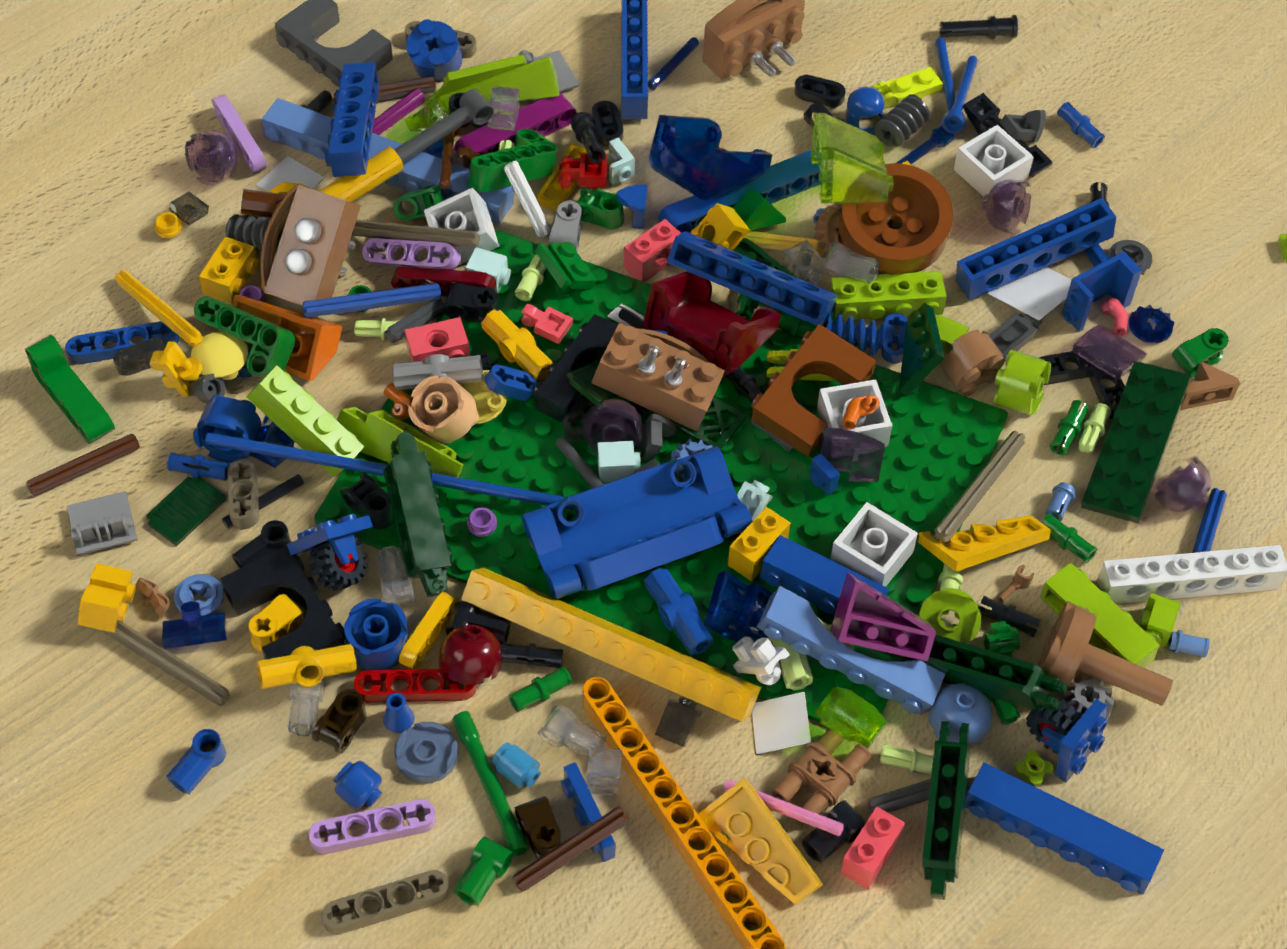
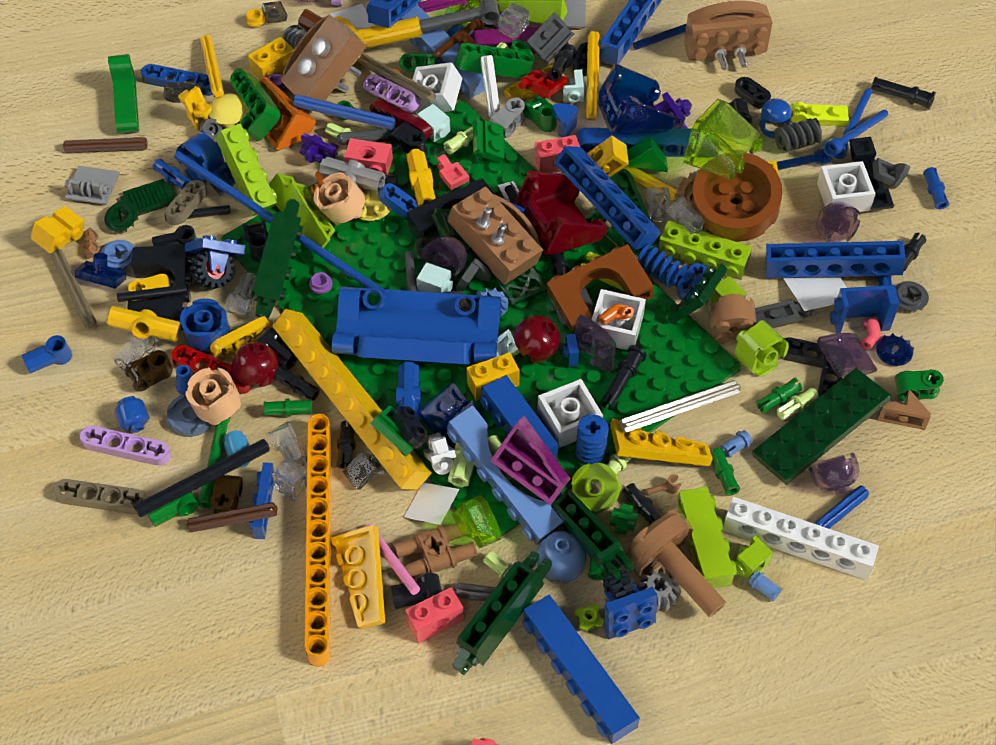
camera: 30 degrees right, 0 degrees up
(172, 534) = (113, 216): none -> dark green gear
(287, 624) = (151, 293): none -> black bar
(364, 360) = (315, 149): none -> dark purple hips
(452, 714) = (213, 395): none -> light nougat brick
(505, 820) = (201, 478): none -> black axle
(558, 113) = (550, 37): none -> dark grey plate
(632, 139) = (592, 95): none -> yellow axle
(637, 701) = (345, 445): none -> black pin
(702, 655) = (387, 427): none -> green plate
(722, 648) = (410, 427): none -> black plate
(748, 141) = (679, 109): none -> dark purple hips
(783, 475) = (537, 338): none -> dark red cylinder
(898, 469) = (627, 369): none -> black pin
(919, 566) = (591, 439): none -> blue piece

